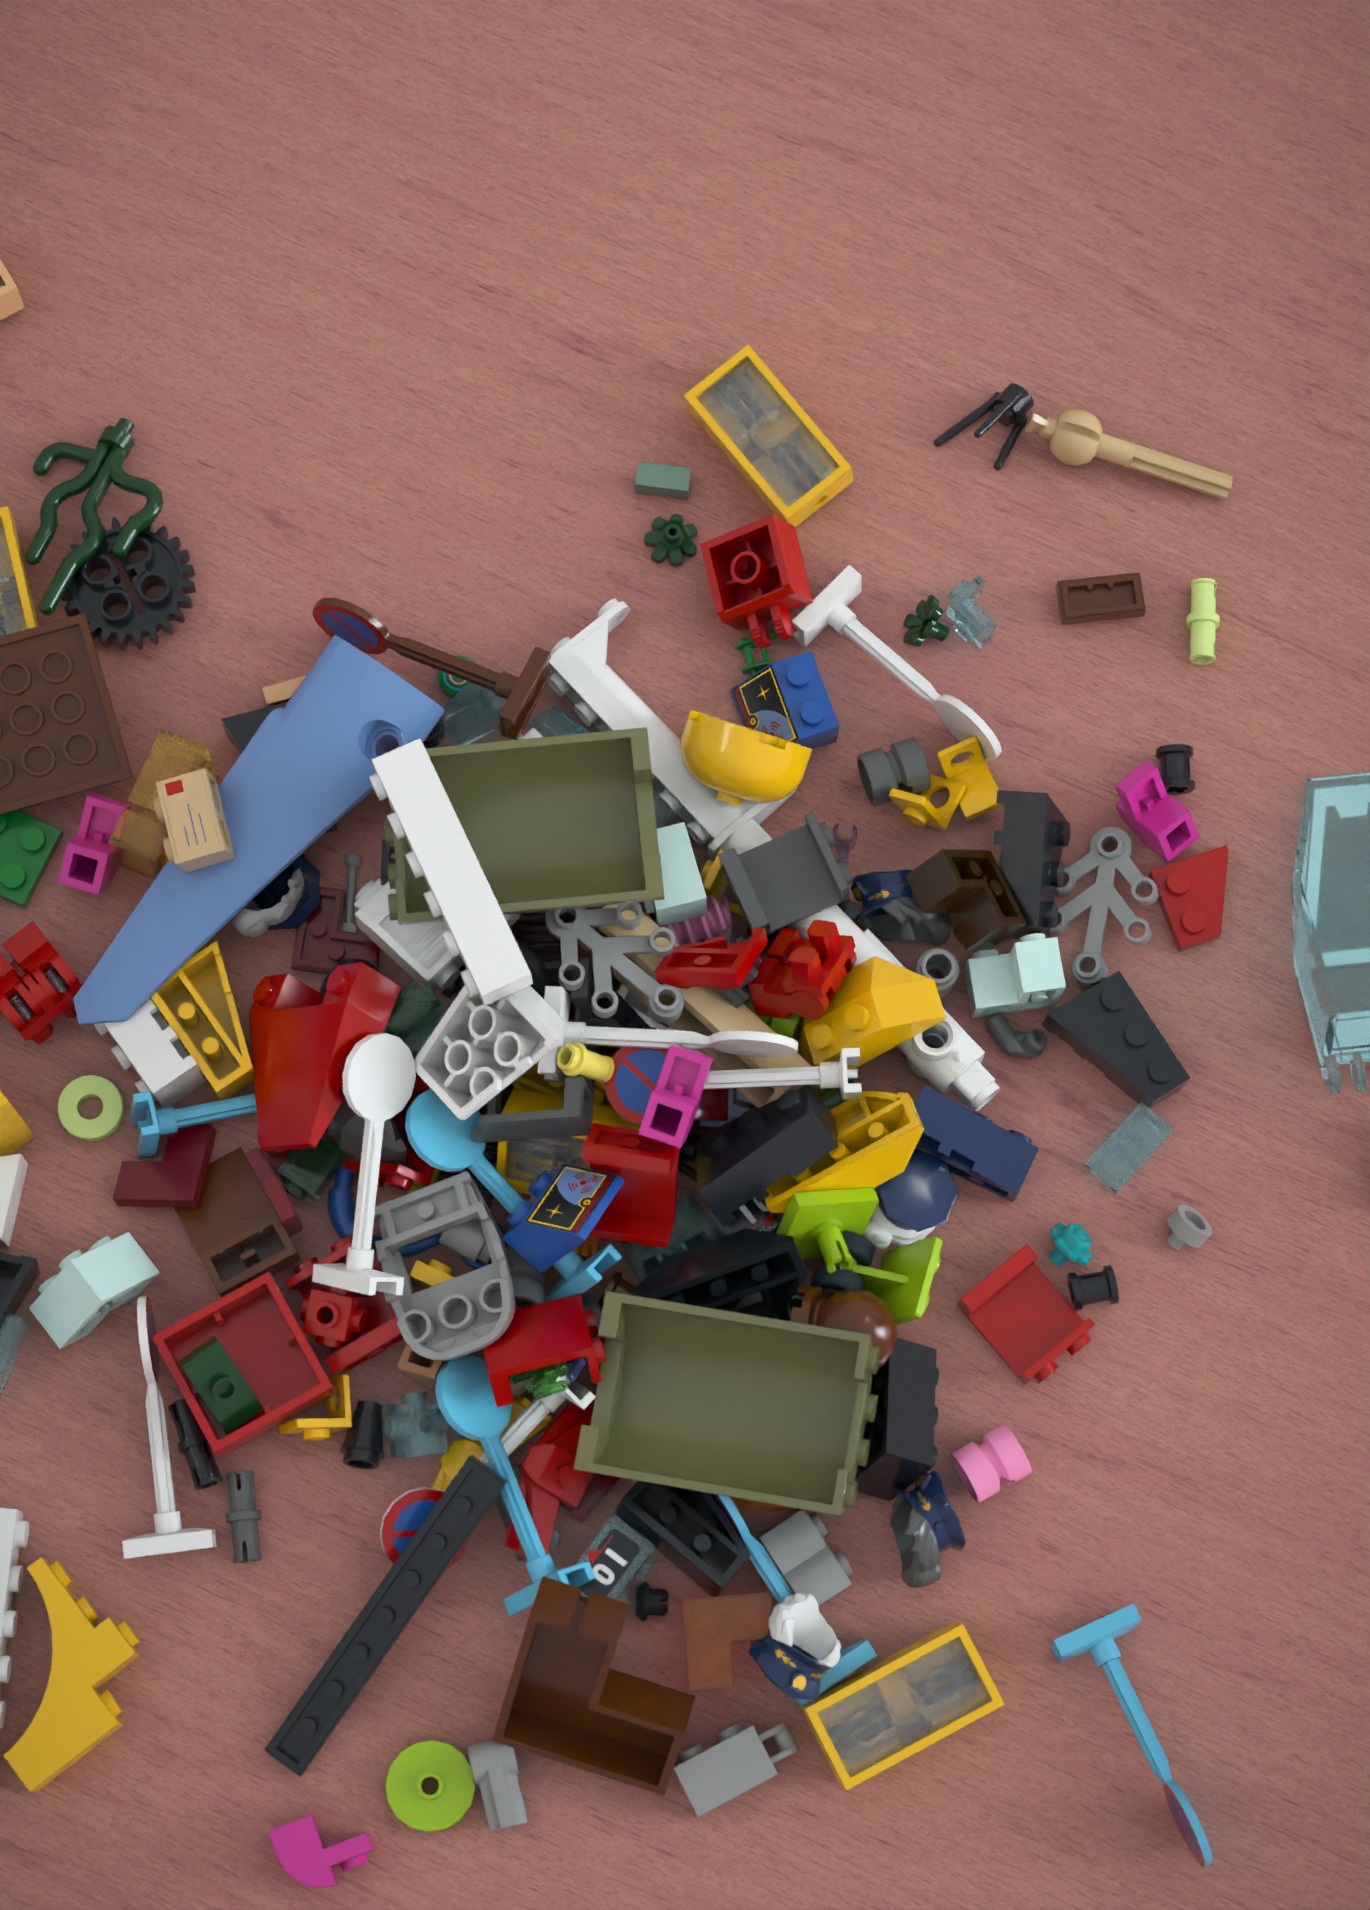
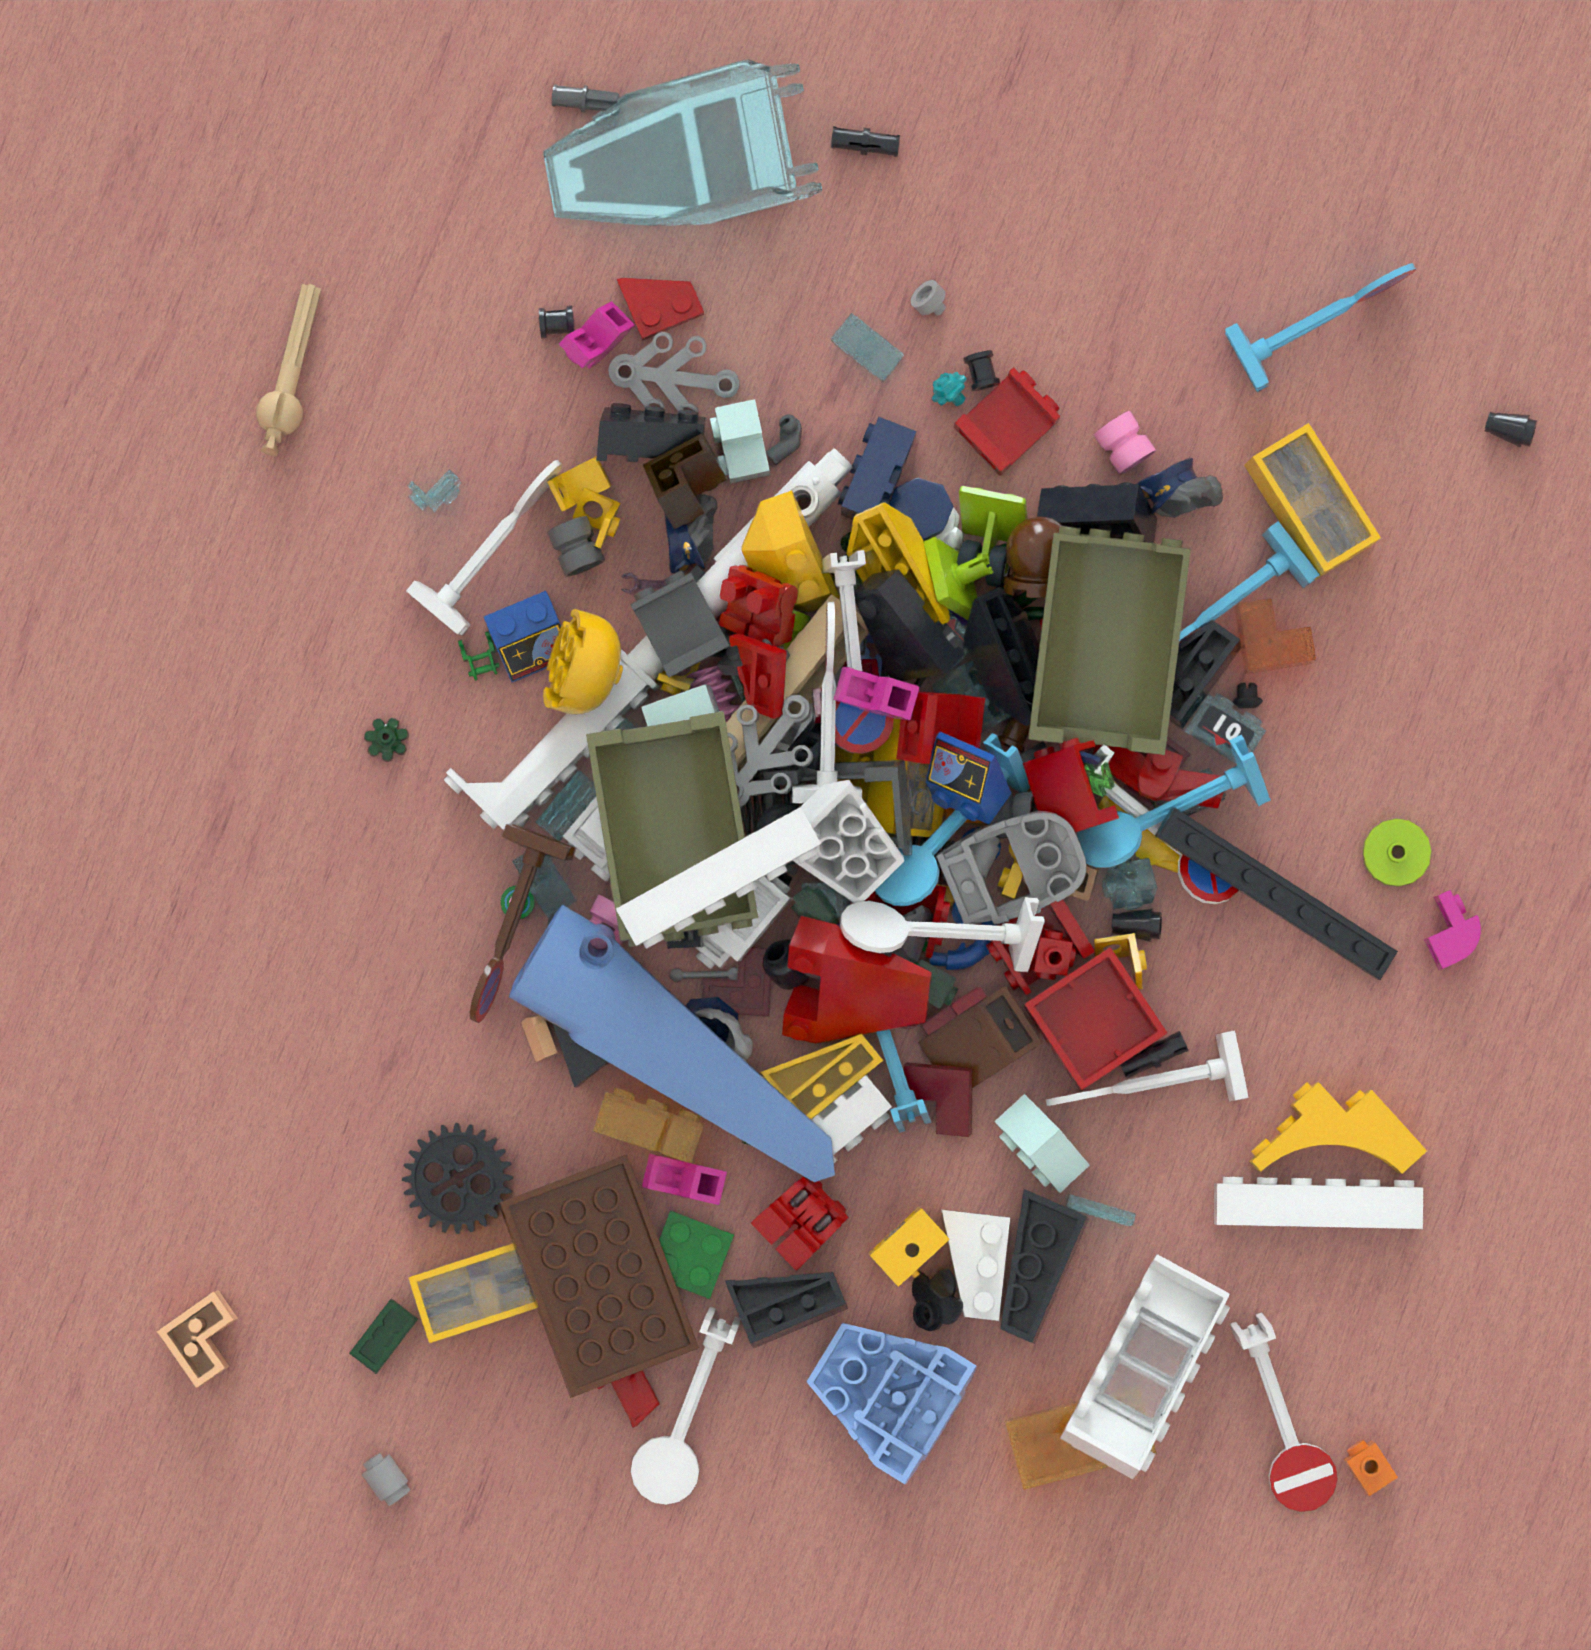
camera: 85 degrees left, 10 degrees up
(95, 1128) = (910, 1159): yellowish green piece -> none
(102, 468) = (360, 1208): dark green plant -> none
(193, 820) = (673, 1094): tan brick -> none
(220, 1385) = (1115, 1033): dark green plate -> none
(243, 1516) = (1206, 1012): dark grey pin -> none
(496, 1772) = (1385, 802): light grey piece -> none
(577, 1060) = (851, 765): light yellow pin -> none
(578, 1709) = (1333, 743): reddish brown piece -> none
(662, 480) = (337, 748): sand green piece -> none
(731, 1766) = (1366, 626): light grey brick -> none
(757, 577) = (426, 645): red hinge -> none
(768, 437) = (298, 663): clear brick -> none
(797, 1647) = (1281, 579): piece -> none
(805, 1558) = (1212, 578): light grey brick -> none
(925, 623) = (447, 527): dark green plant -> none
(944, 964) = (737, 494): light grey brick -> none
(1007, 409) = (255, 468): black plant -> none
(1100, 598) = (415, 387): reddish brown plate -> none
(1120, 1040) = (784, 356): black wedge -> none
(1202, 621) = (429, 304): yellowish green pin -> none

